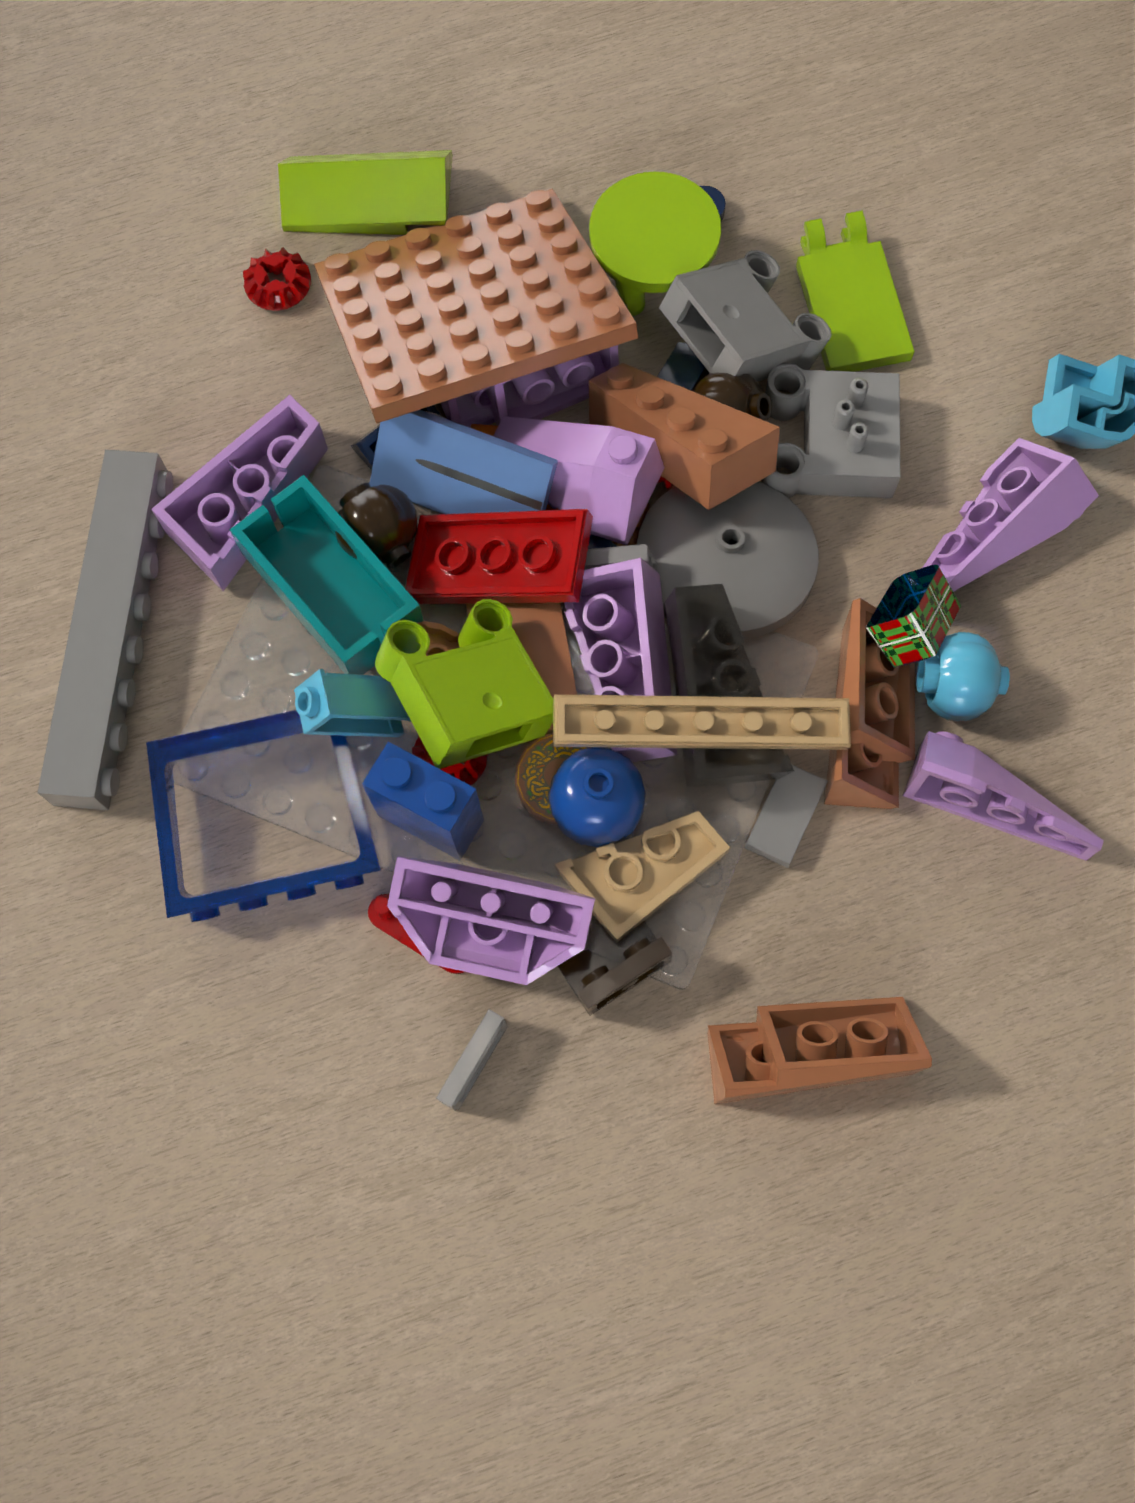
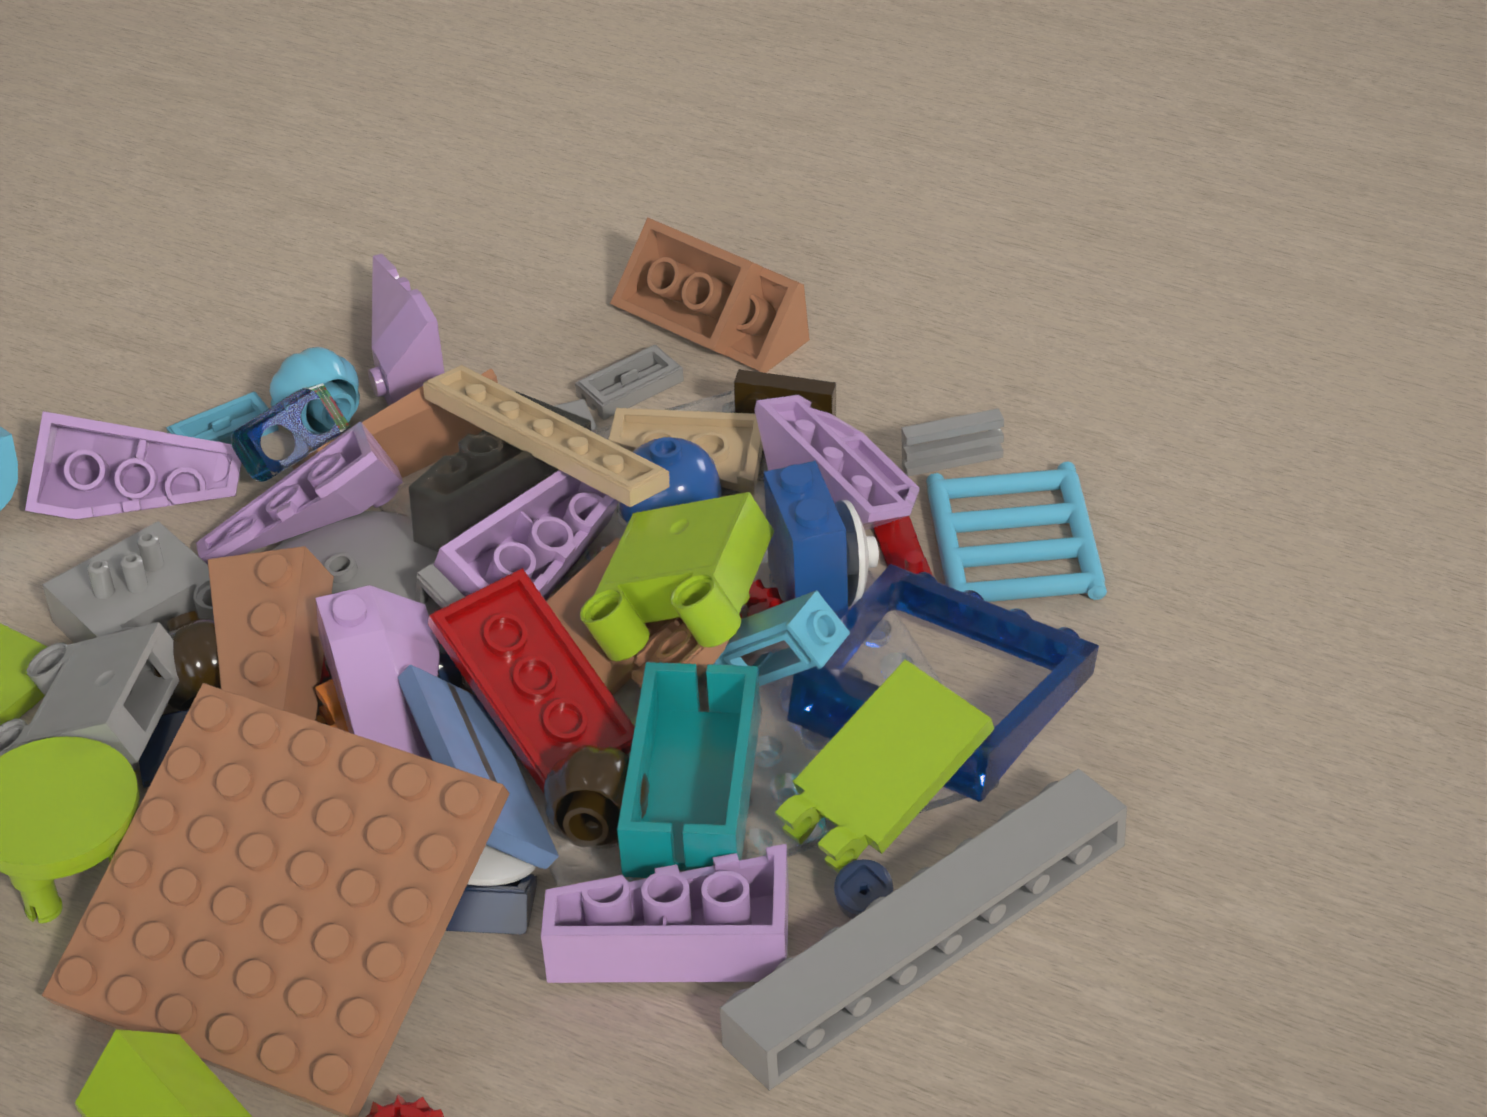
camera: 135 degrees left, 30 degrees down
(170, 620) = (860, 885): none -> dark blue tile
(209, 683) = (884, 765): none -> lime tile
(330, 1077) = (1072, 511): none -> medium azure bar
(398, 842) = (861, 551): none -> white dish
(783, 963) = (629, 381): none -> light grey tile
(822, 573) = (323, 490): none -> lavender wedge
(1008, 581) = (223, 420): none -> medium azure tile

